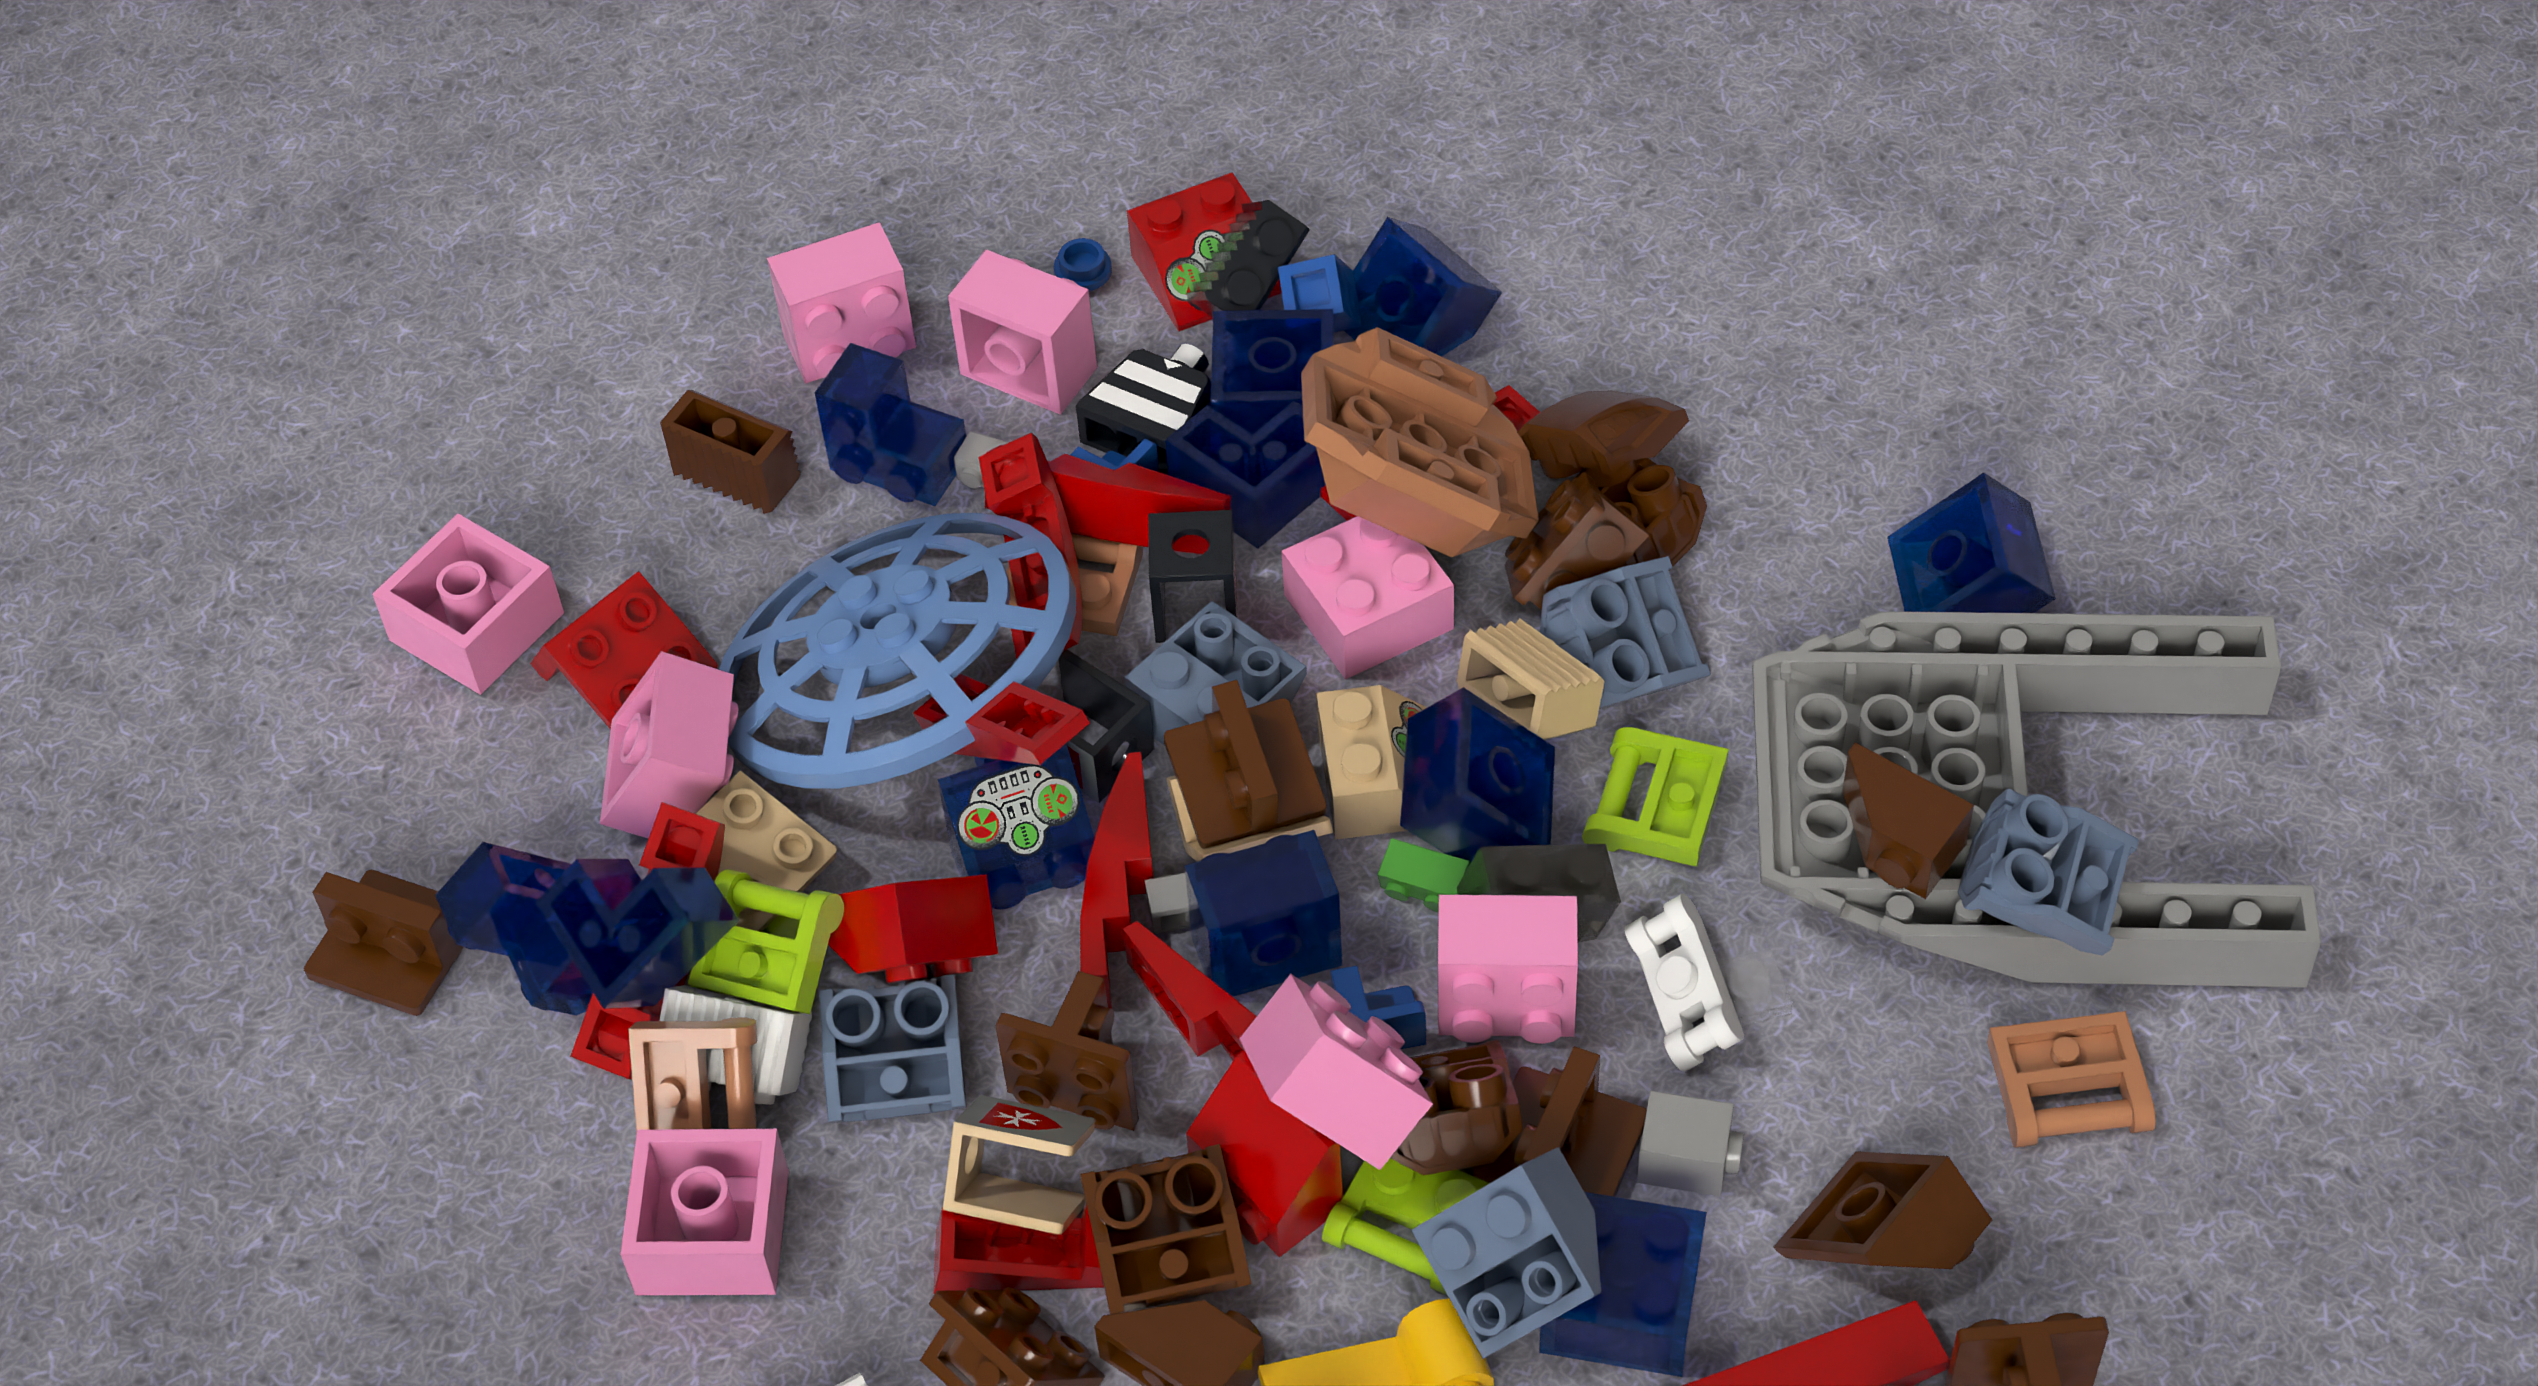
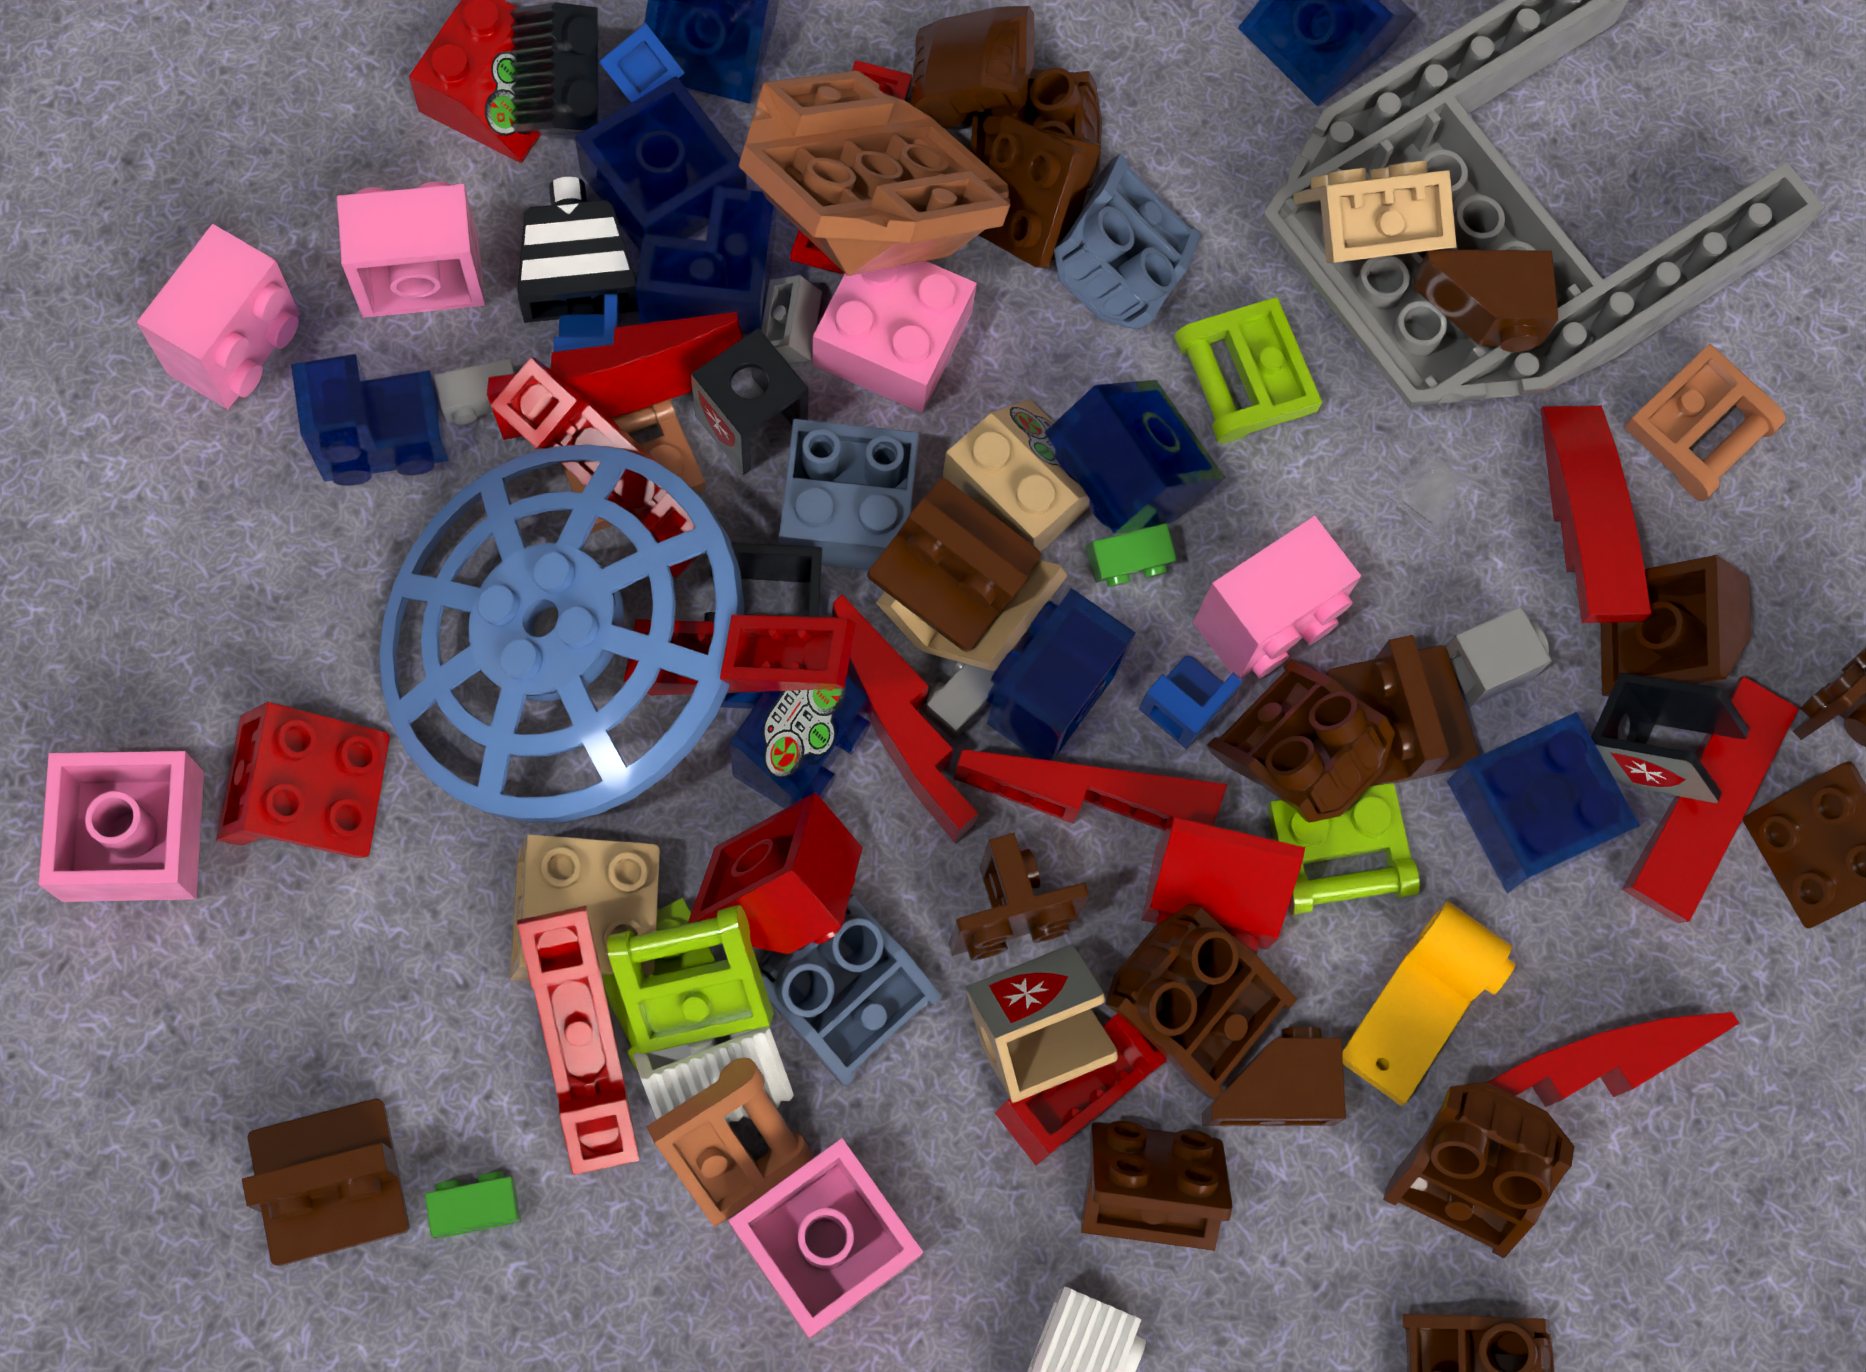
camera: 50 degrees left, 20 degrees up
(476, 1025) = (472, 1207): none -> bright green piece
(494, 910) = (470, 1084): clear blue brick -> none
(635, 932) = (576, 1060): clear blue brick -> none
(668, 743) = (442, 853): bright pink brick -> none
(730, 450) = (235, 525): reddish brown brick -> none
(1083, 263) = (390, 148): blue plate -> none
(1265, 552) = (791, 317): none -> light grey piece
(1336, 1070) = (1263, 793): bright pink brick -> none
(1516, 1251) = (1482, 841): sand blue slope -> none
(1530, 679) = (1092, 332): tan brick -> none
(1549, 871) = (1246, 517): clear smoke brick -> none
(1685, 983) = (1393, 521): white plate -> none
(1807, 1272) = (1668, 704): none -> black piece
(1829, 685) = (1388, 215): none -> tan bracket
(1881, 1085) = (1594, 515): none -> red slope
(2047, 869) = (1622, 272): sand blue slope -> none

